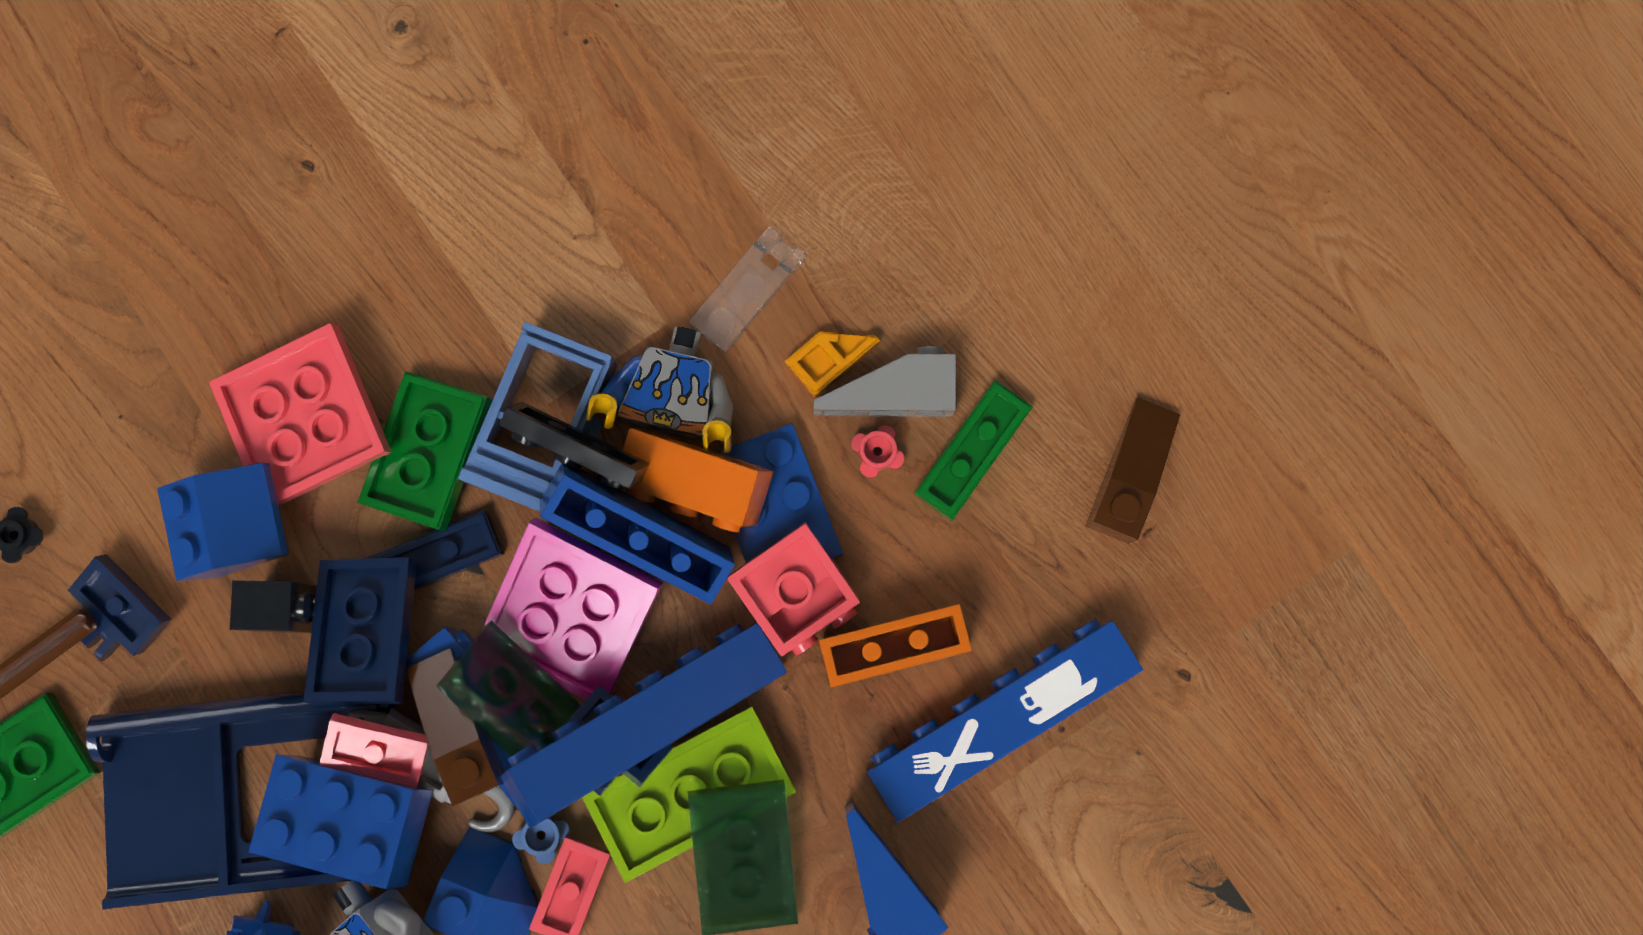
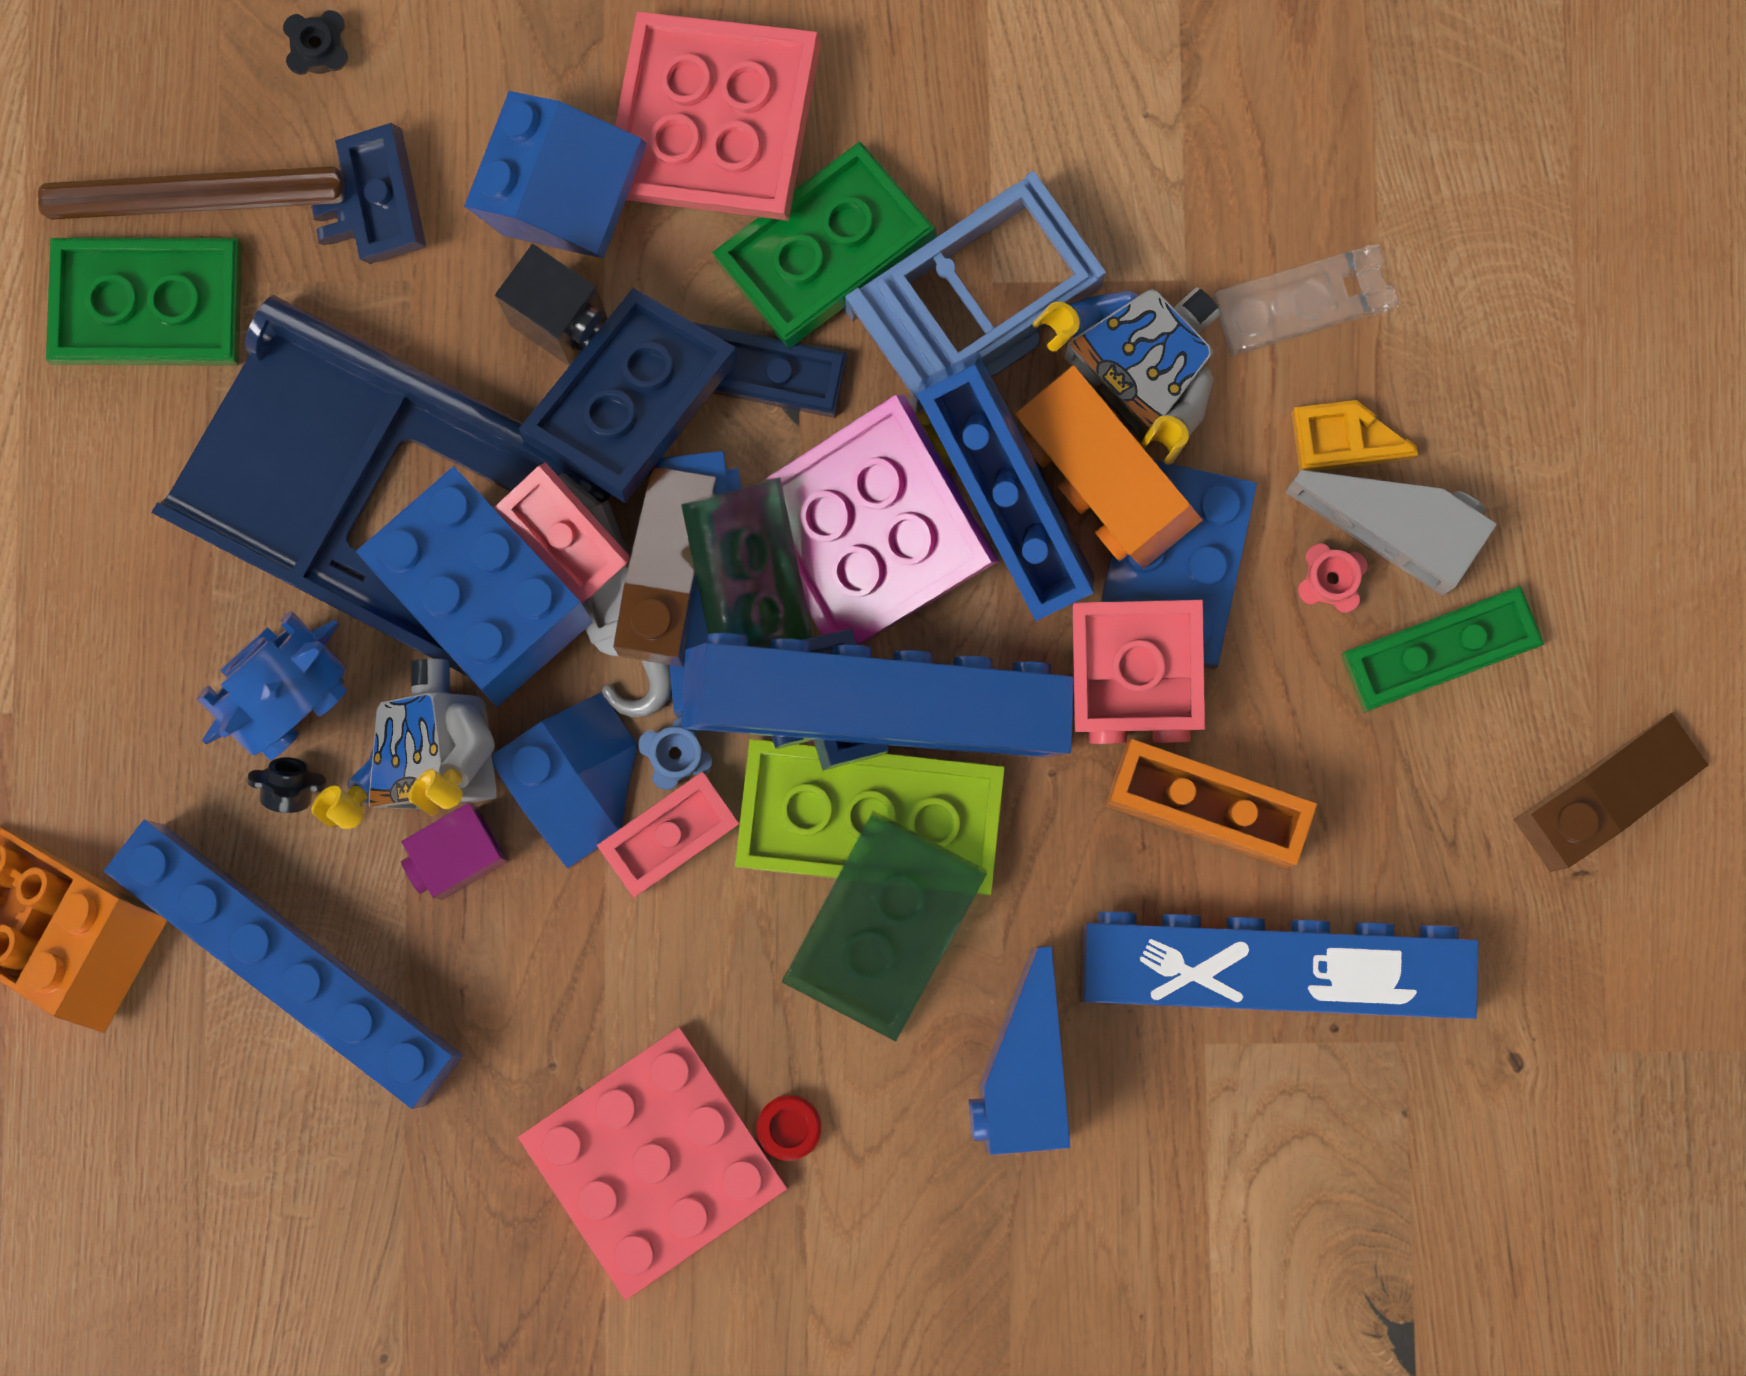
camera: 35 degrees right, 0 degrees up
(573, 446) = (1000, 343): black plate -> none

